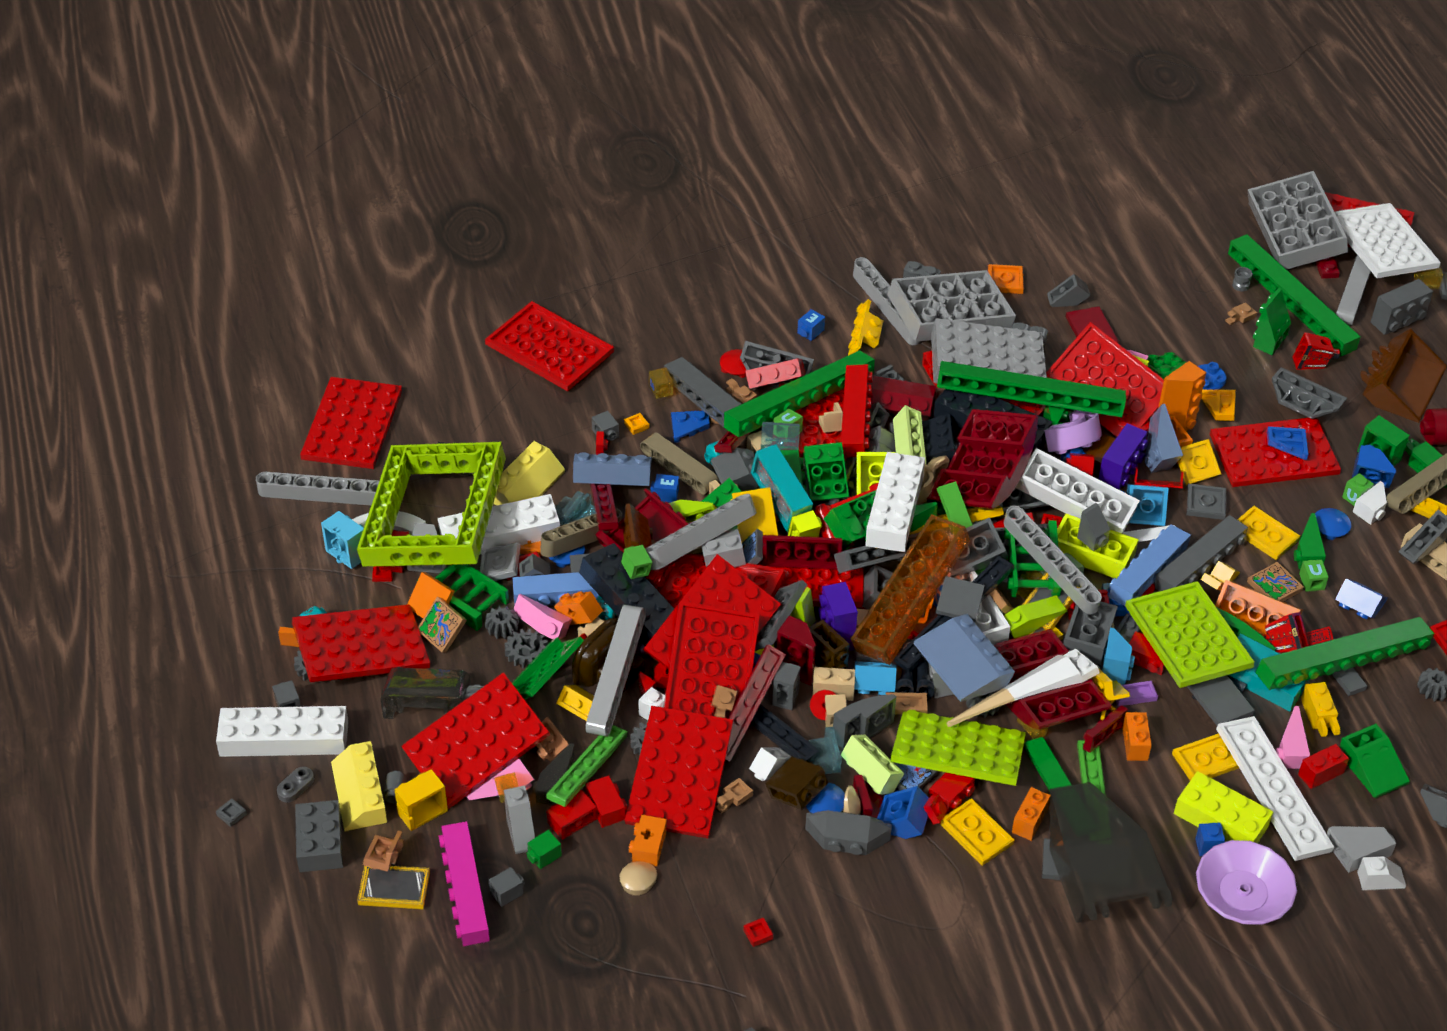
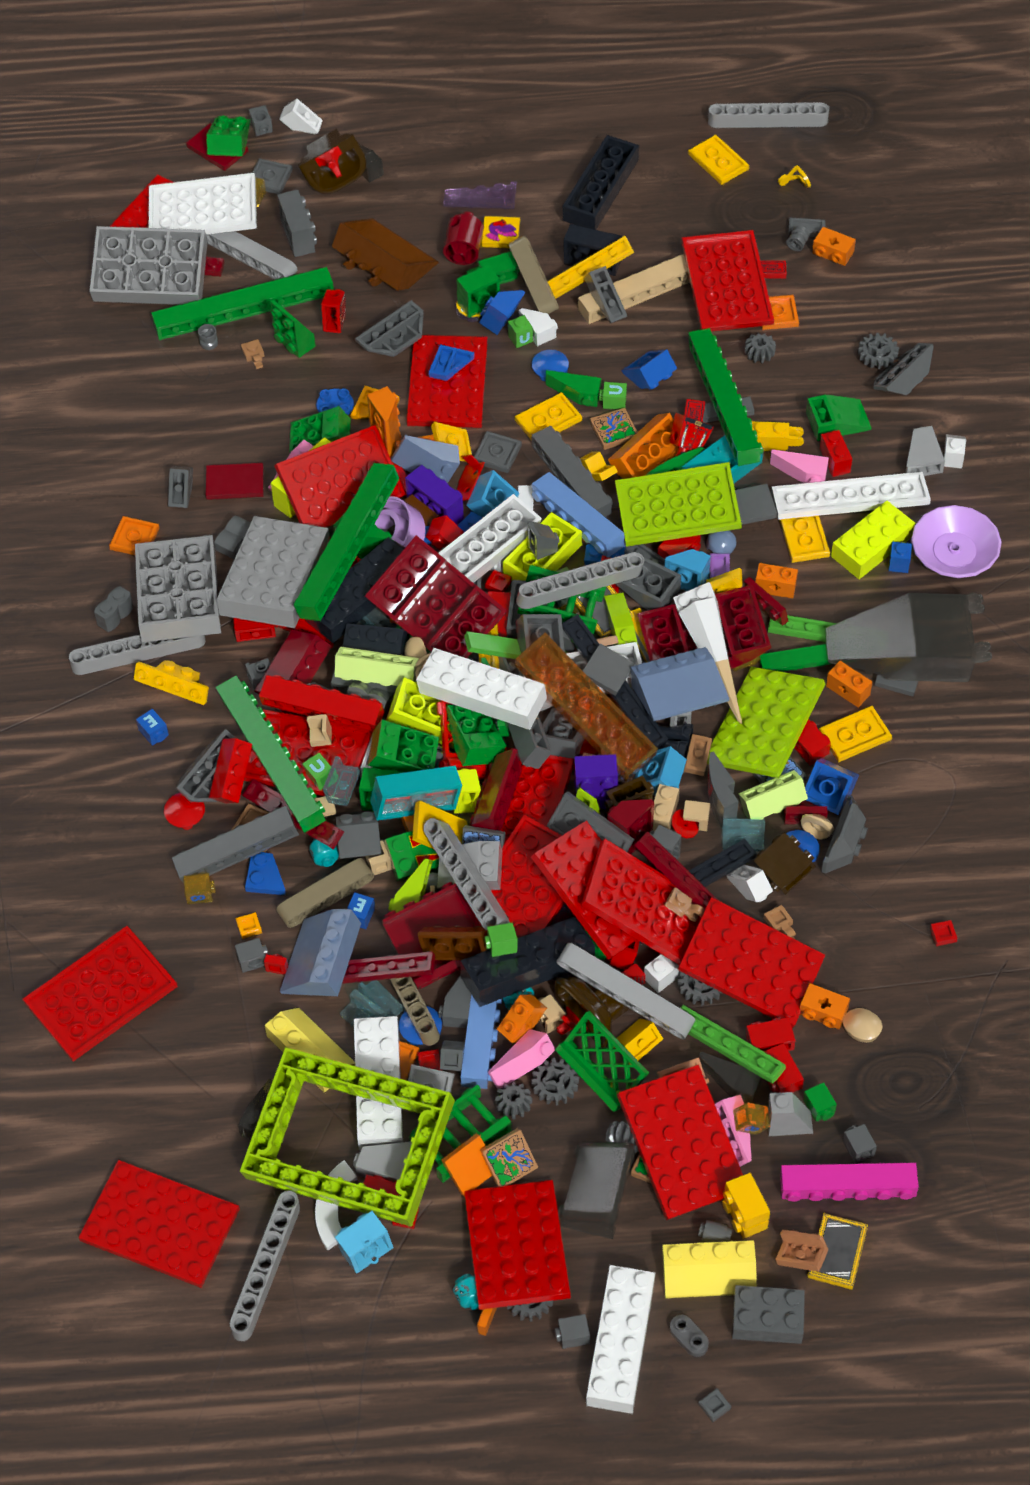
camera: 75 degrees left, 10 degrees up
(741, 394) = (242, 812): medium nougat plate -> none
(935, 808) = (832, 756): red plate -> none
(1168, 689) = (721, 542): none -> sand blue hair

